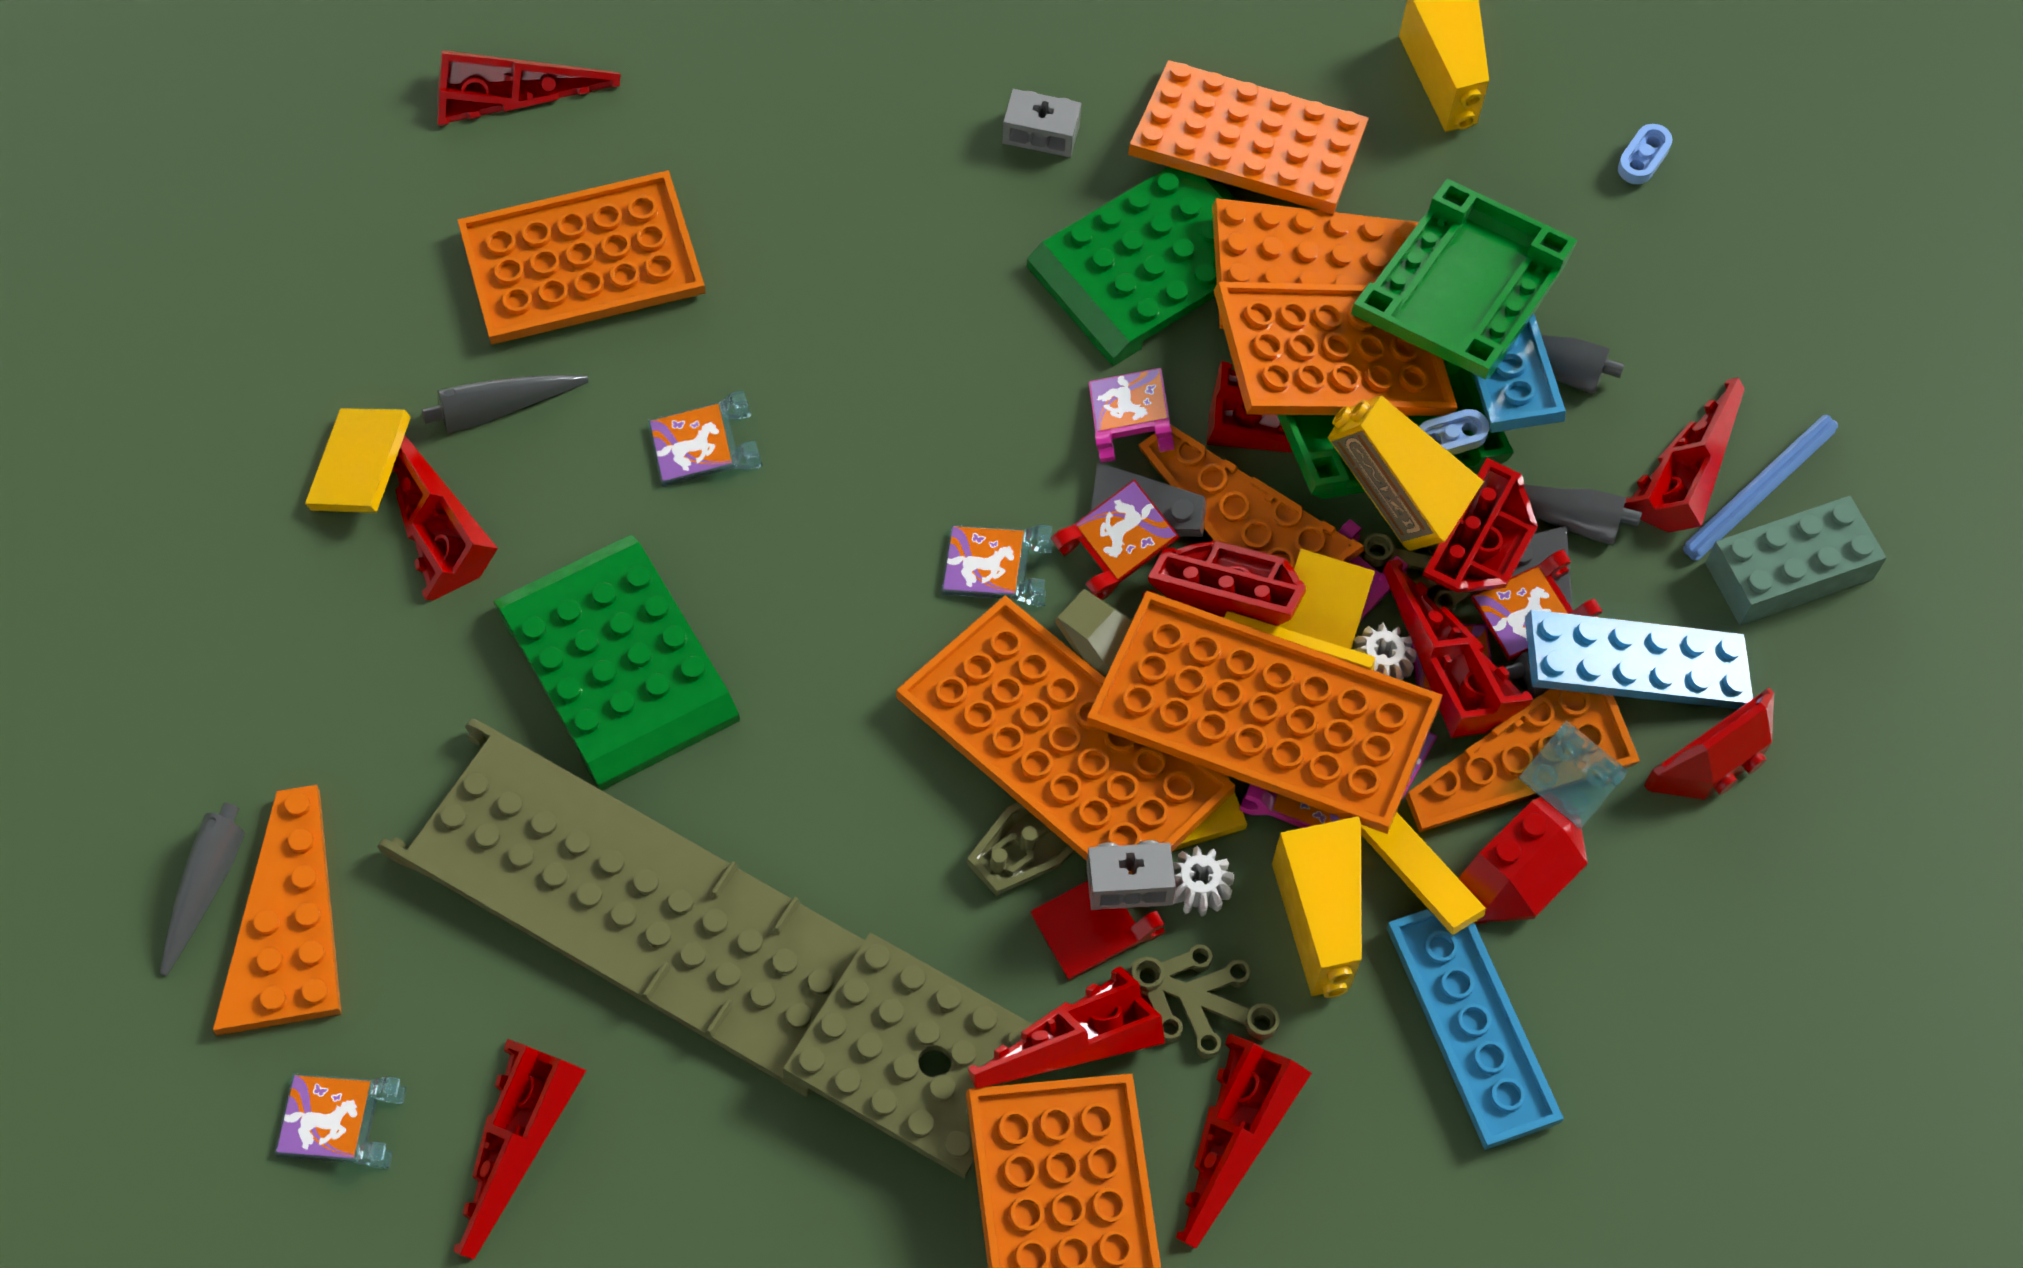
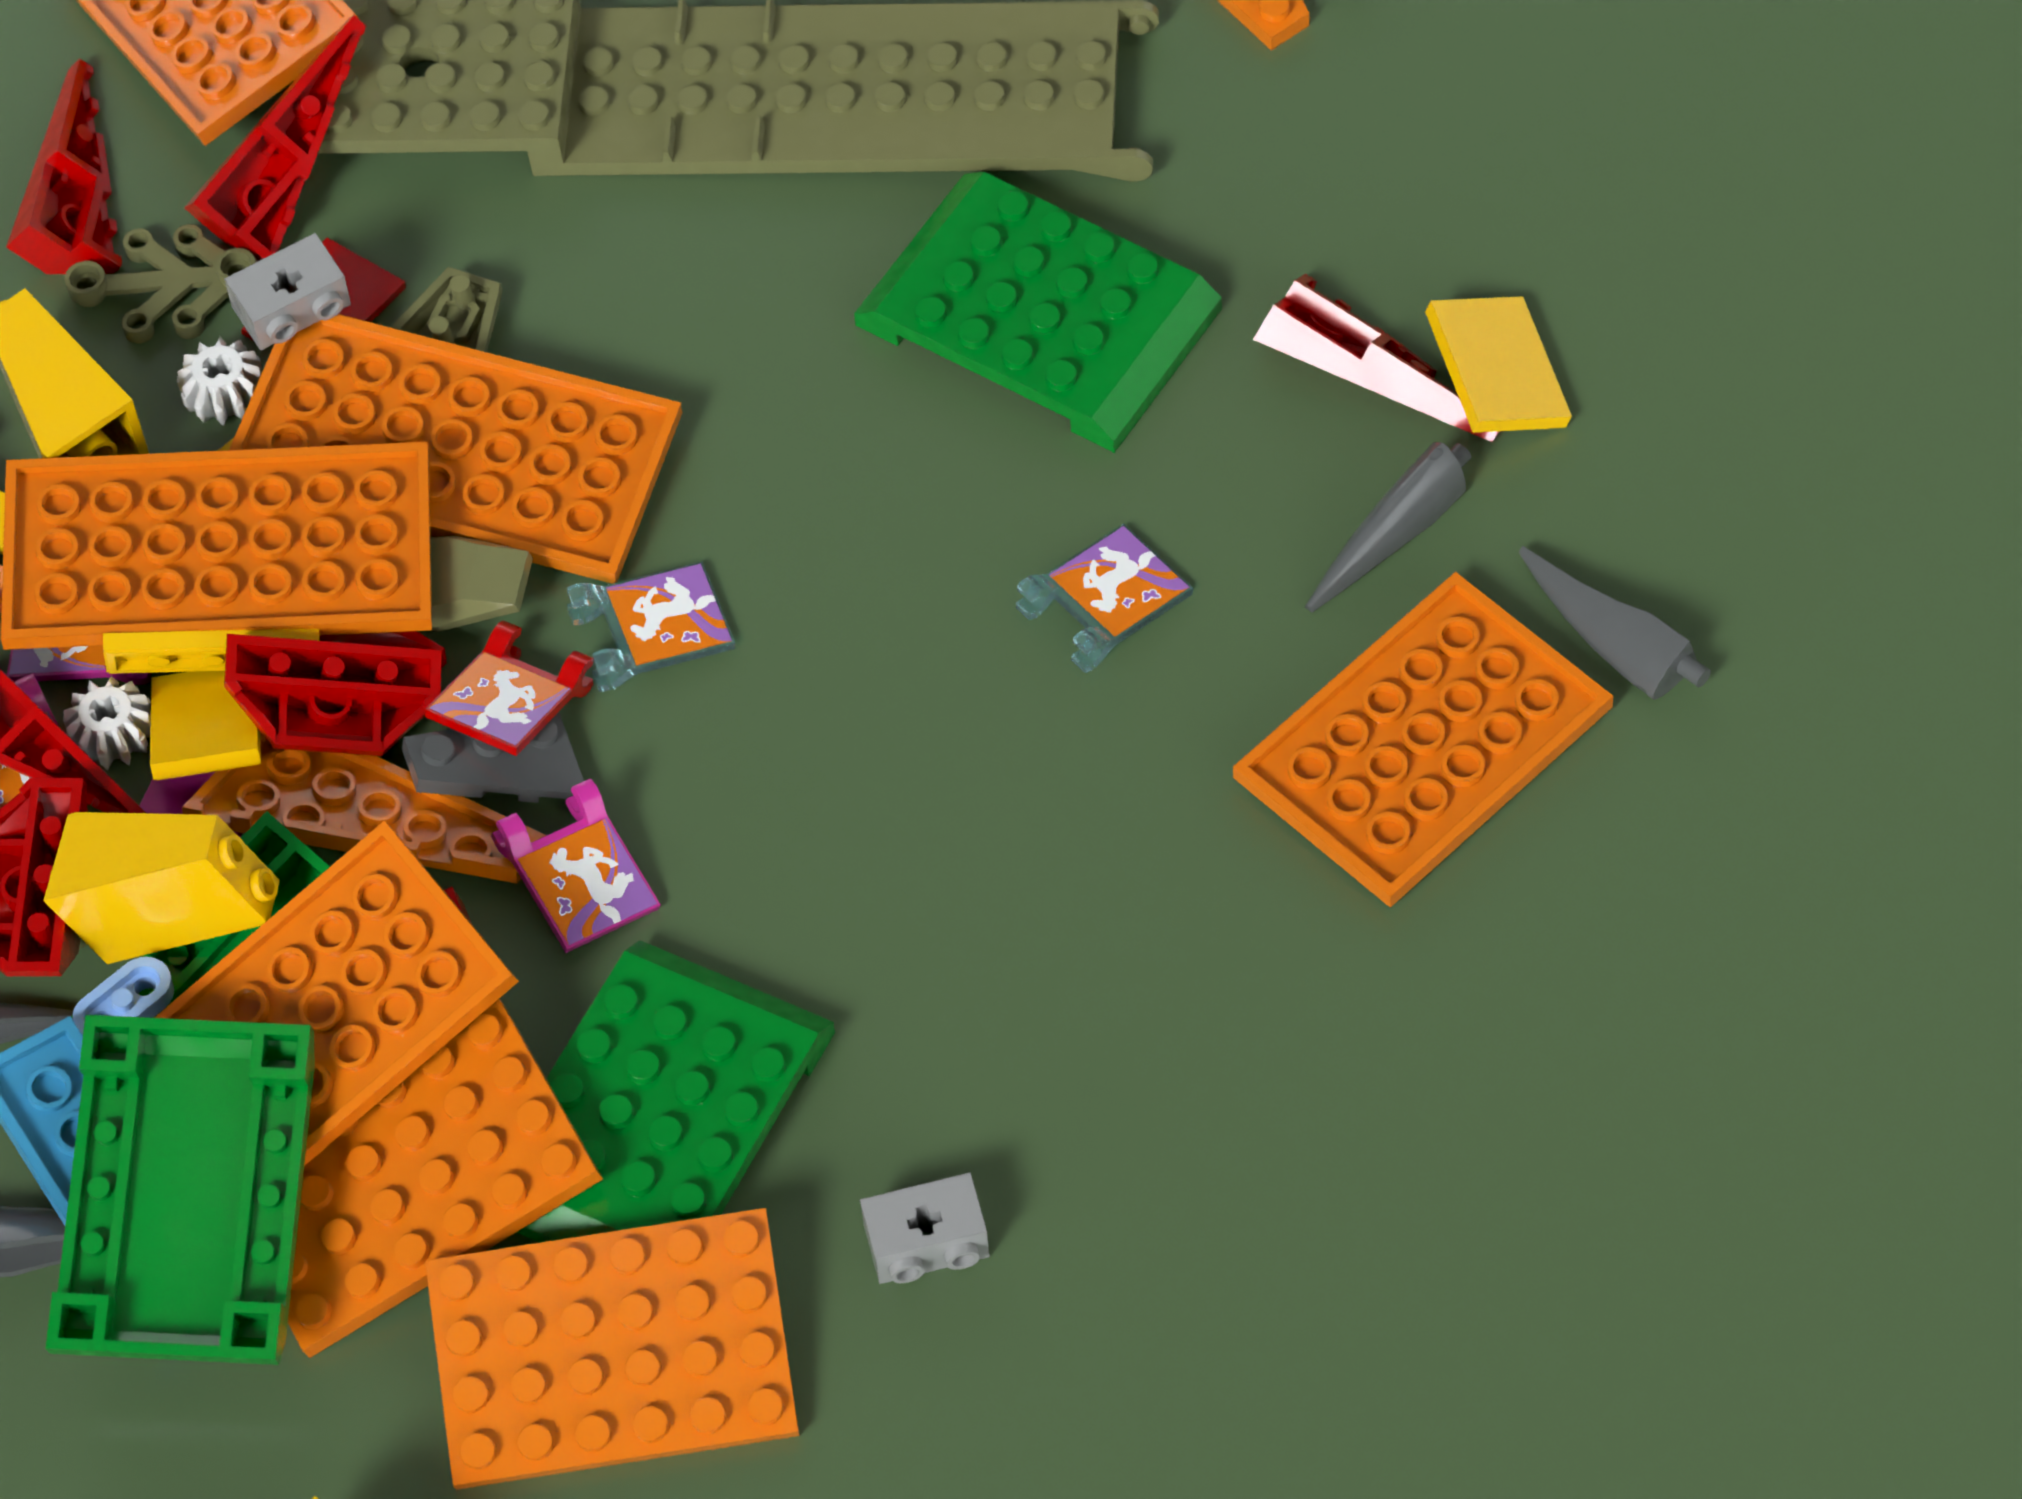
camera: 160 degrees right, 5 degrees down
(419, 258) = (1626, 637): none -> dark grey piece
(488, 84) = (1719, 918): red wedge -> none

